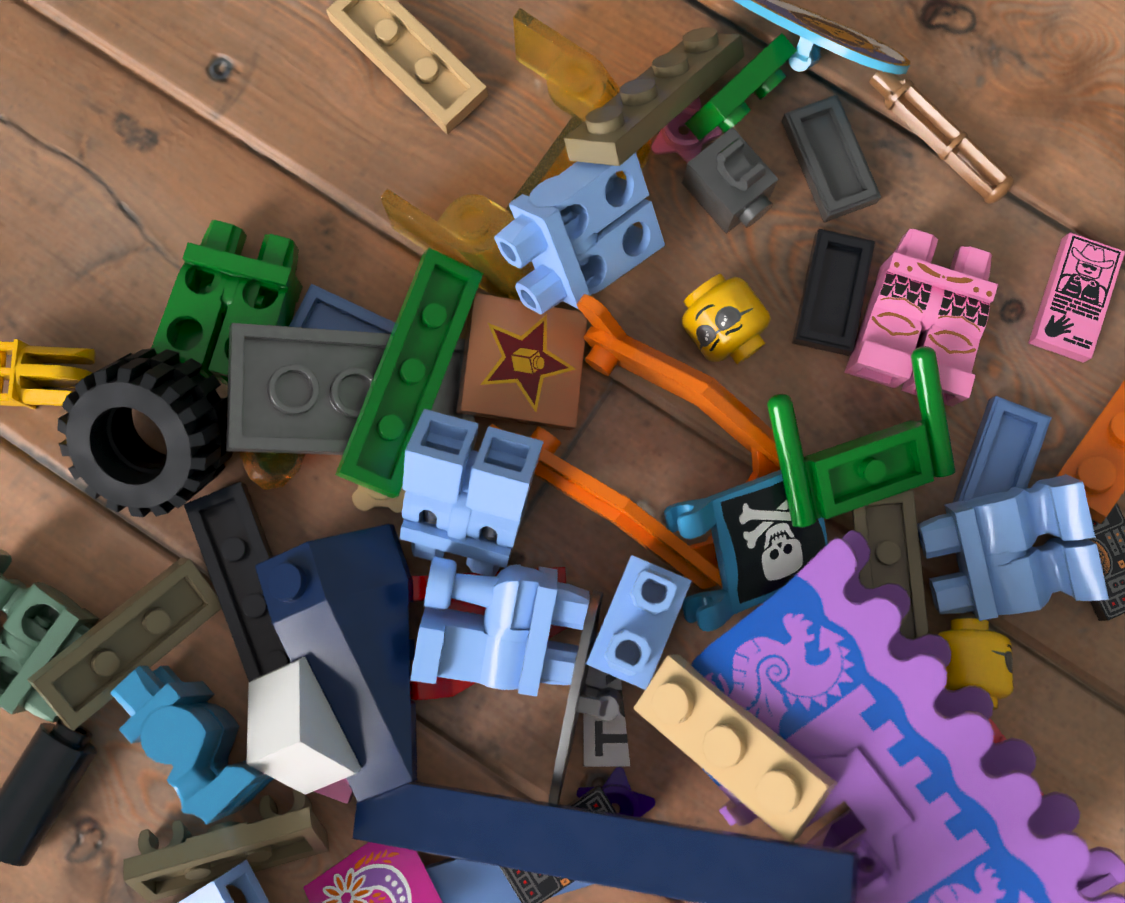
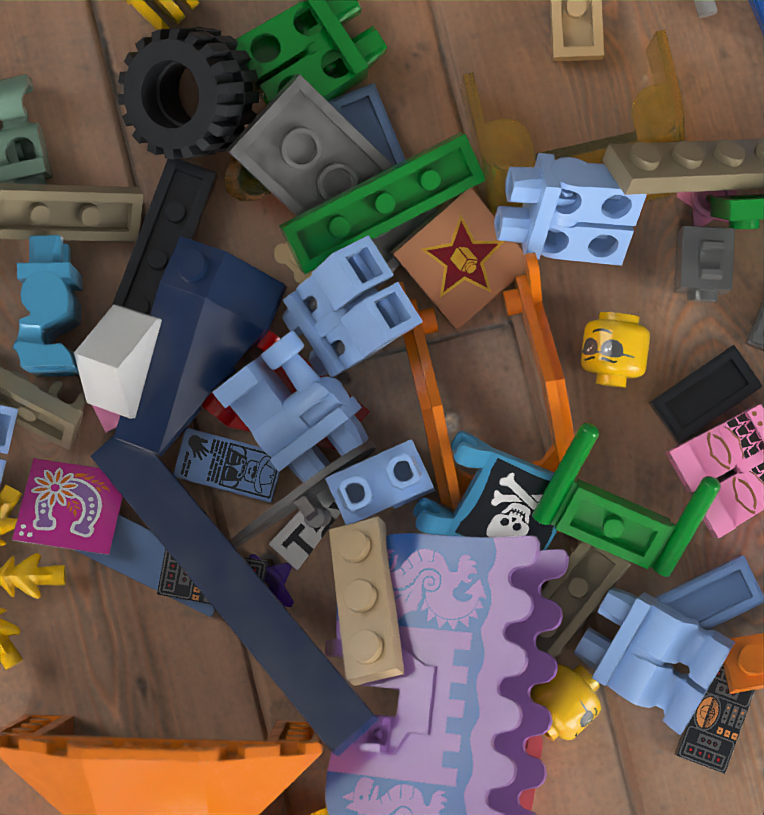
camera: 45 degrees right, 5 degrees up
(482, 732) = (226, 465): none -> medium blue tile

